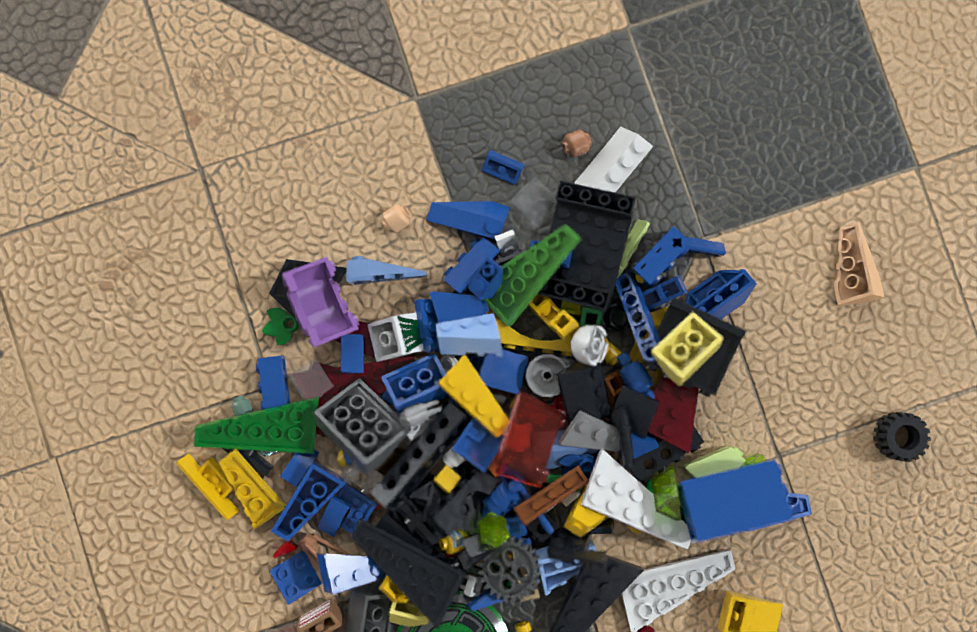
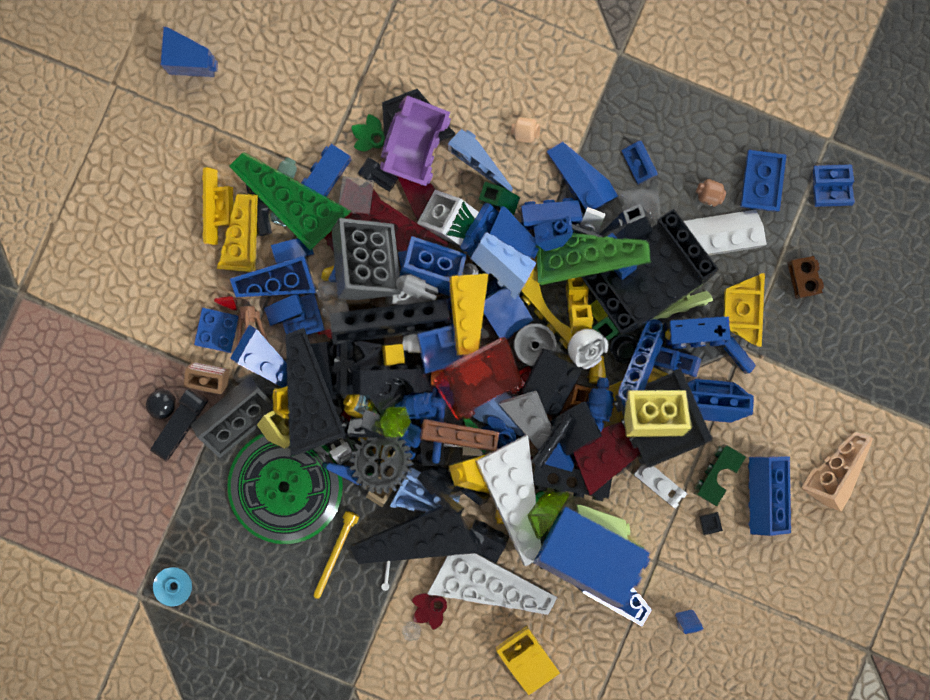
camera: 40 degrees right, 0 degrees up
(87, 391) = (186, 56): none -> blue slope
(307, 353) = (371, 171): none -> black piece
(352, 354) = (404, 201): blue slope -> none
(421, 287) = (499, 197): none -> dark green slope
(537, 222) = (629, 224): none -> black slope
(607, 100) = (763, 181): none -> blue plate
(641, 552) = (489, 540): none -> black bracket
(662, 58) = (833, 185): none -> blue slope
(678, 207) = (745, 309): none -> yellow wing
(699, 150) = (799, 277): none -> reddish brown brick
(733, 396) = (660, 484): none -> white plate
(763, 335) = (724, 459): none -> dark green arch
(794, 391) = (710, 523): none -> black tile
(820, 332) = (769, 495): none -> blue slope
(845, 481) = (688, 622): none -> blue slope
(916, 441) = (776, 632): black tyre -> none

